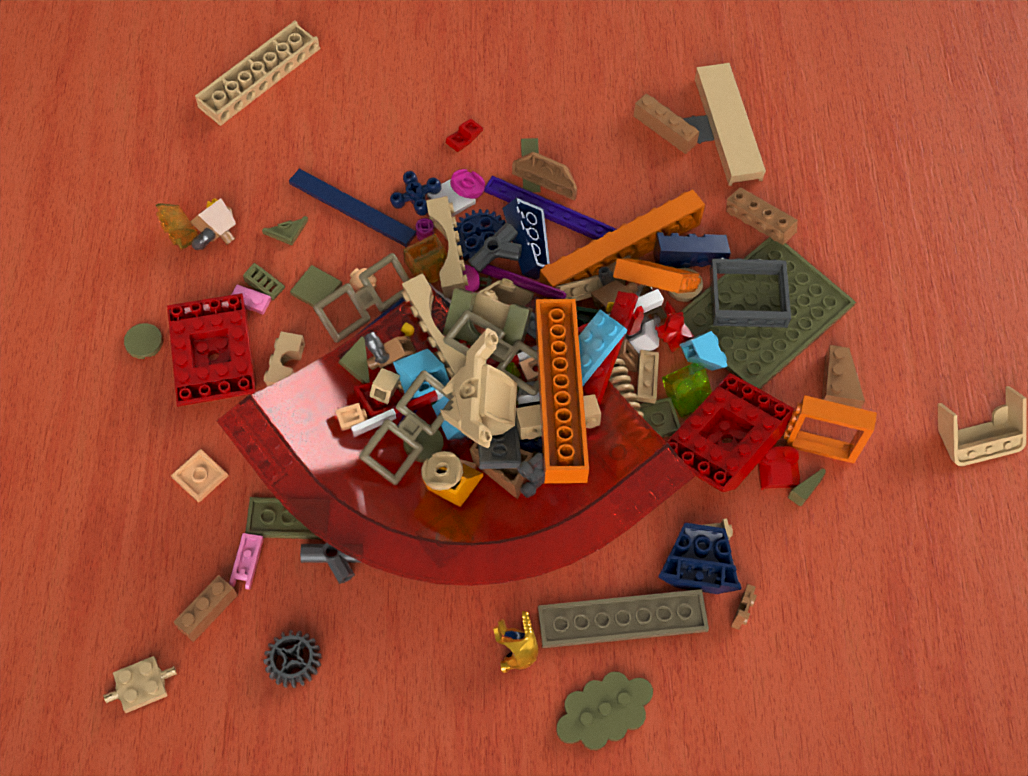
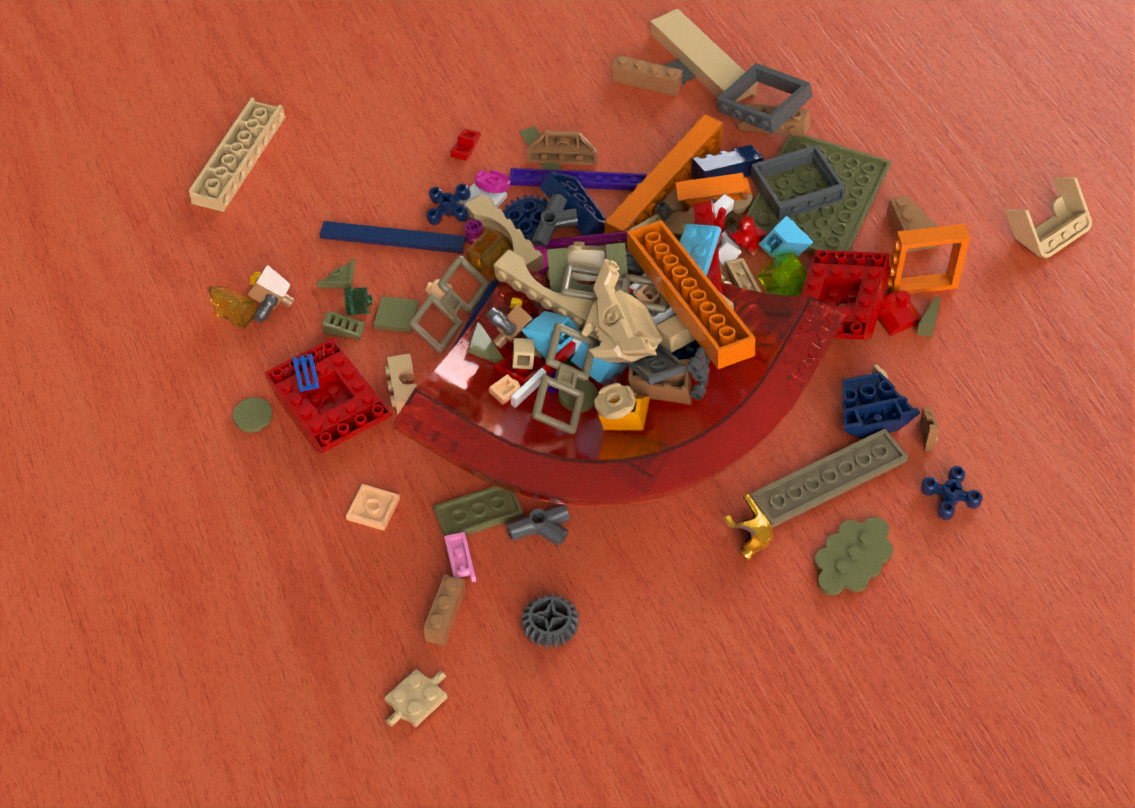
camera: 20 degrees left, 10 degrees down
(201, 308) = (303, 361): none -> blue tile
(253, 300) = (347, 343): bright pink plate -> none
(282, 257) = (357, 301): none -> clear green brick
(737, 690) = (951, 492): none -> dark blue gear
(766, 161) = (799, 89): none -> dark grey window

